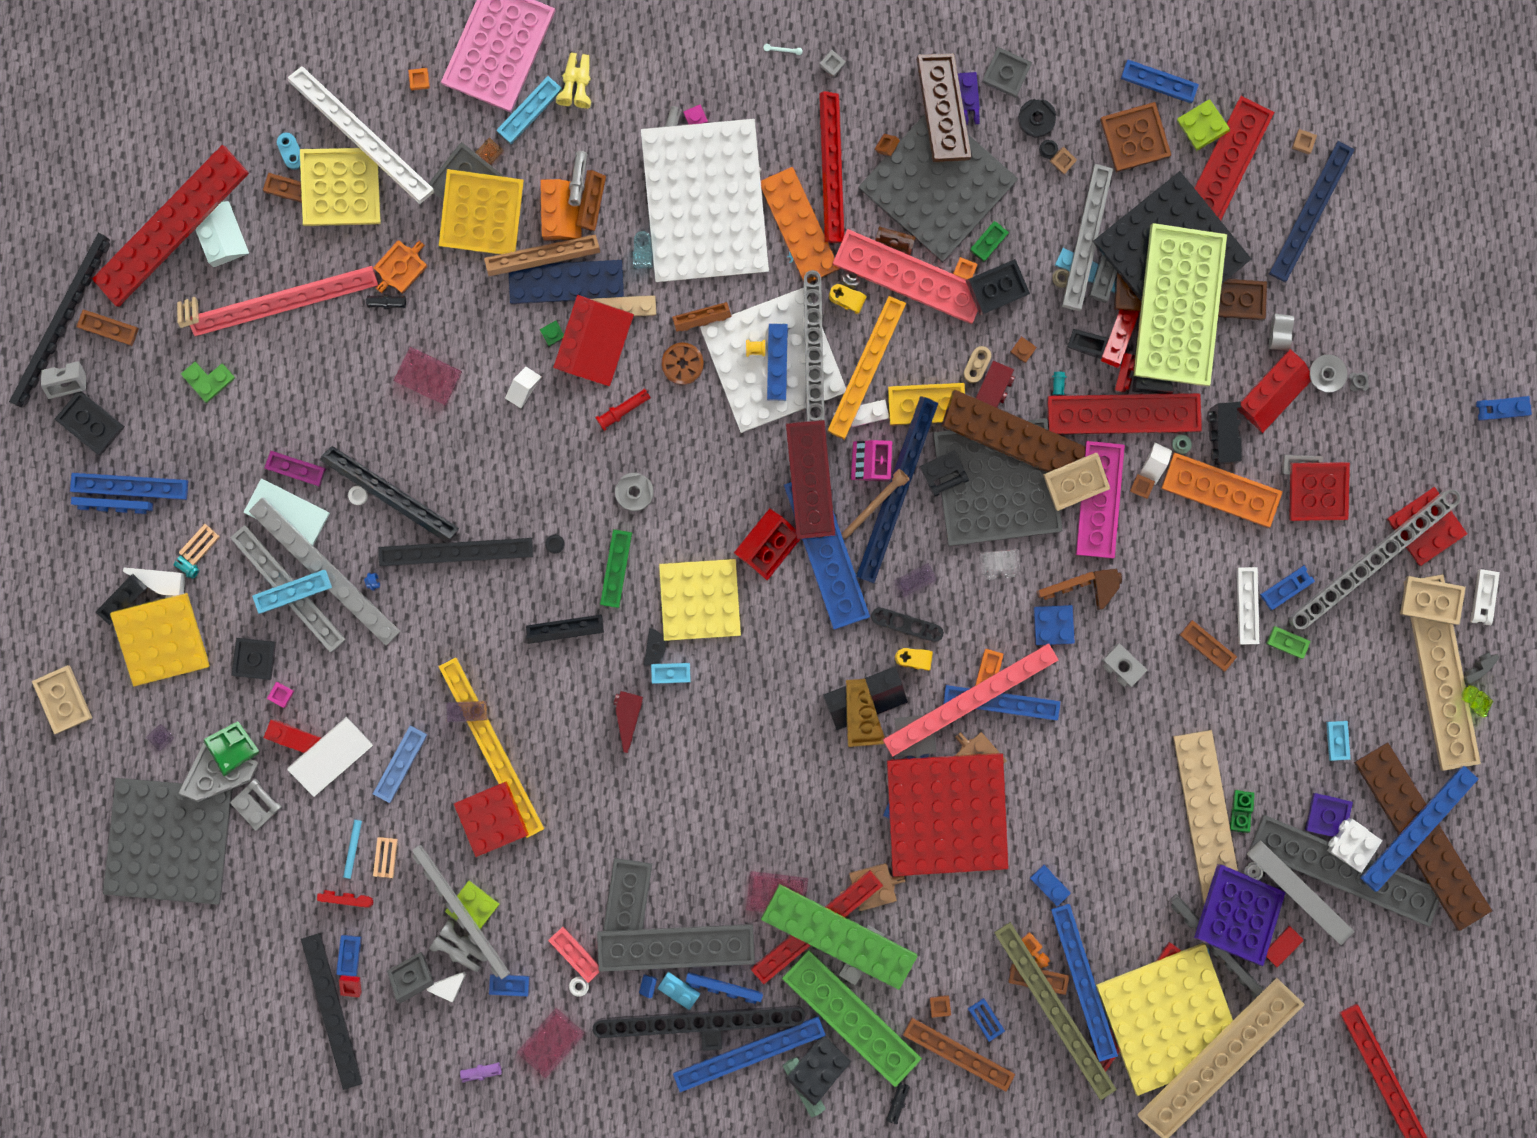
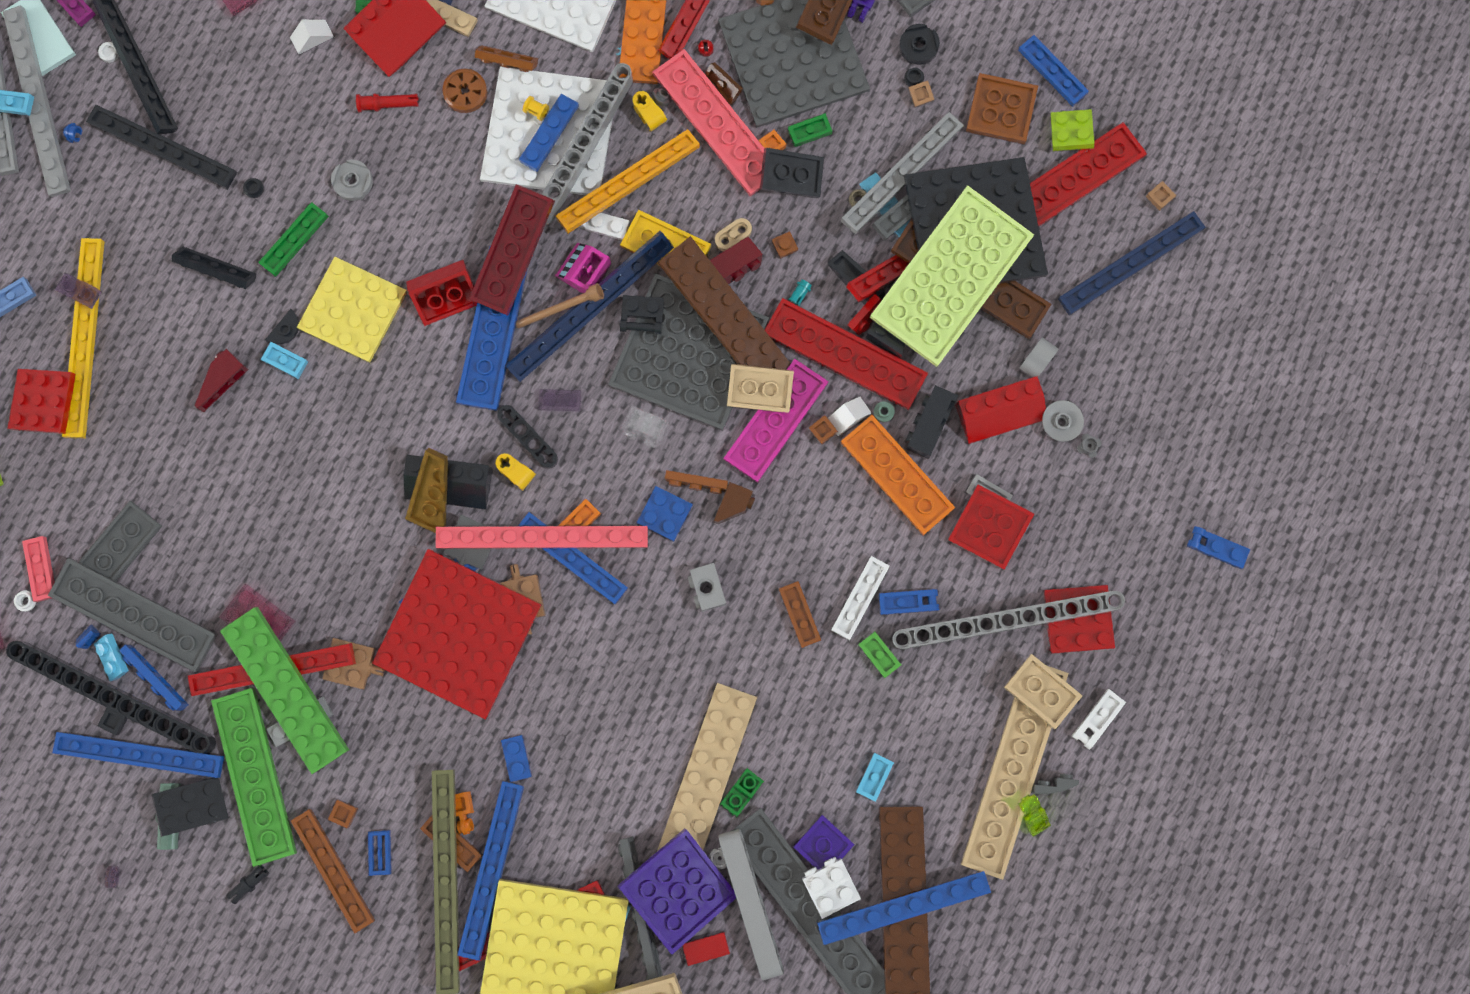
camera: 40 degrees right, 5 degrees down
(858, 219) = (701, 48): none -> red hinge

